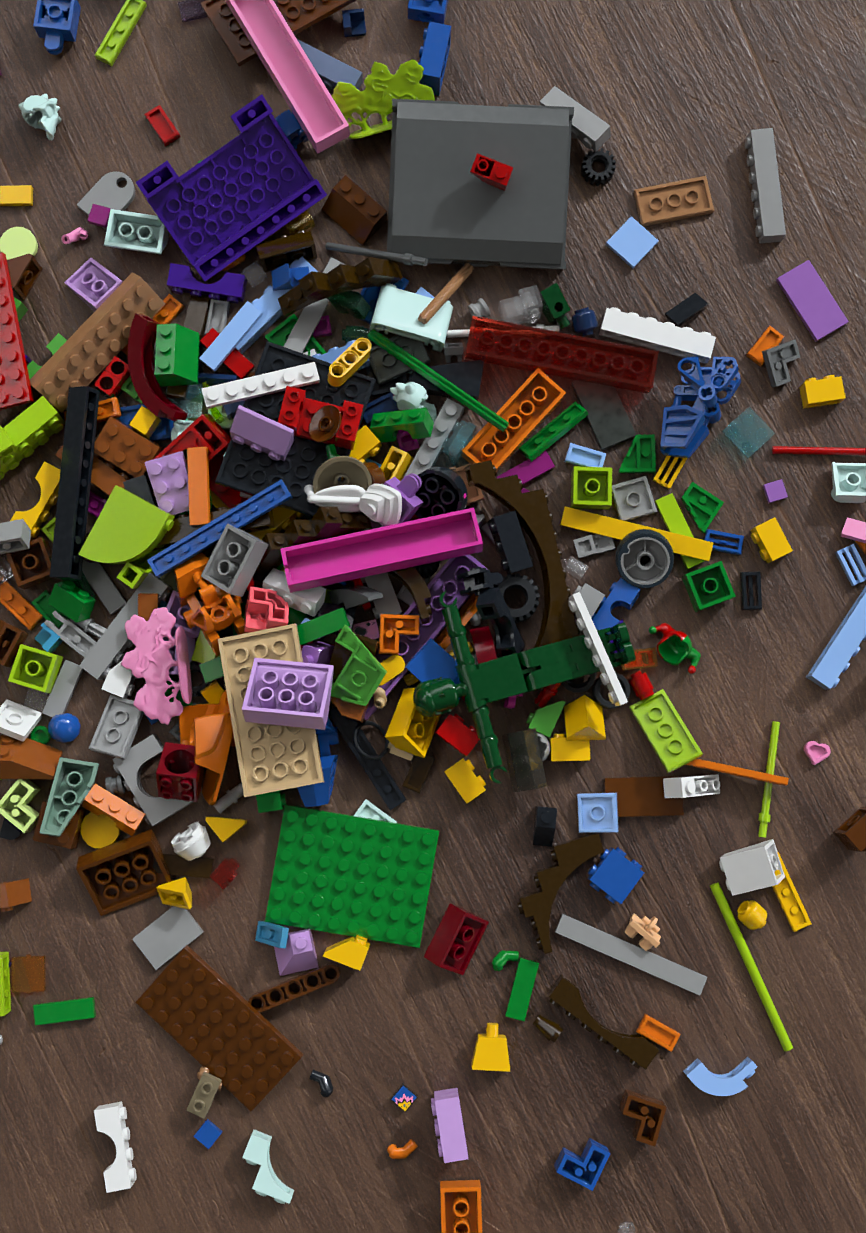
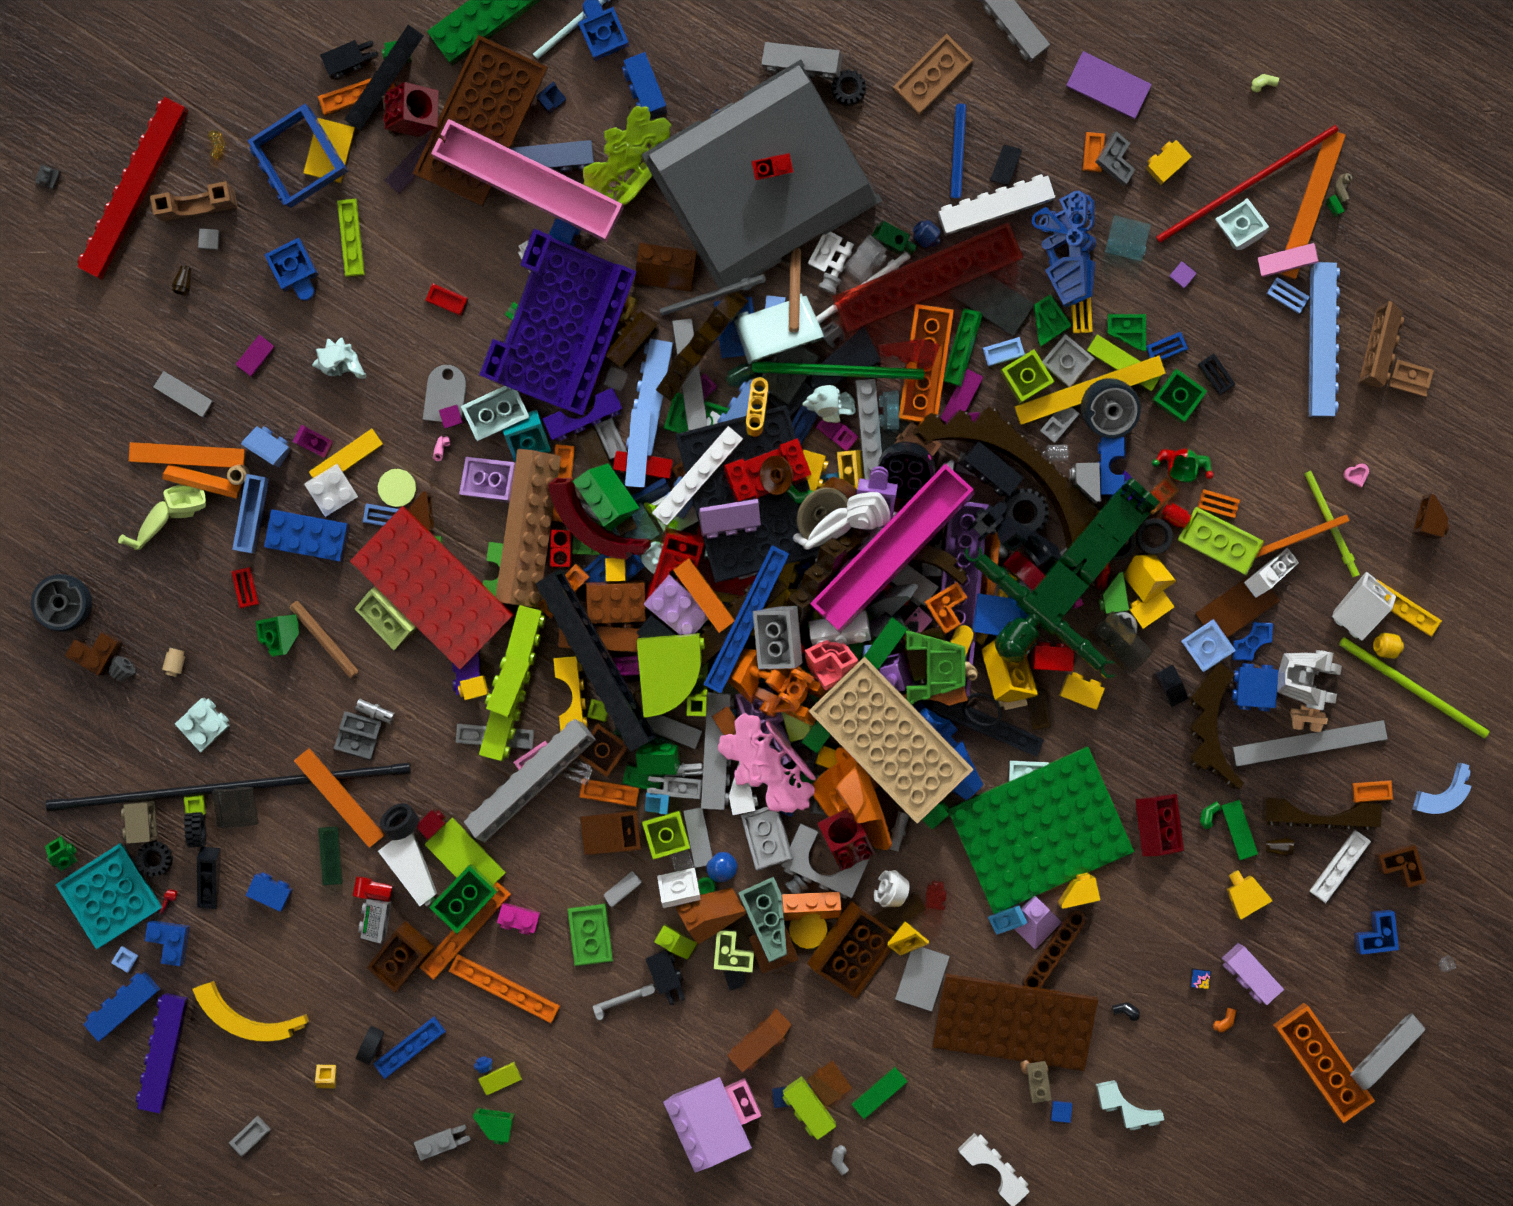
camera: 30 degrees left, 5 degrees up
(151, 268) = (527, 435): none -> teal slope
(225, 827) = (910, 859): yellow slope -> none
(287, 278) = (654, 364): blue slope -> none
(288, 693) = (899, 716): lavender slope -> none
(350, 302) = (721, 351): clear green brick -> none
(414, 421) = (844, 420): green arch -> none
(493, 282) = (825, 251): none -> white plate
(512, 403) = (916, 351): none -> clear red slope
(588, 1079) = (1340, 866): none -> white tile
(599, 656) = (1116, 510): white plate -> none
(628, 836) = (1258, 635): none -> blue tile
(632, 242) = (921, 135): light blue tile -> none
(654, 273) = (958, 151): none -> blue axle
(657, 888) = (1298, 673): none -> white piece
(694, 711) = (1234, 508): none -> orange tile
(770, 540) = (1206, 321): yellow brick -> none

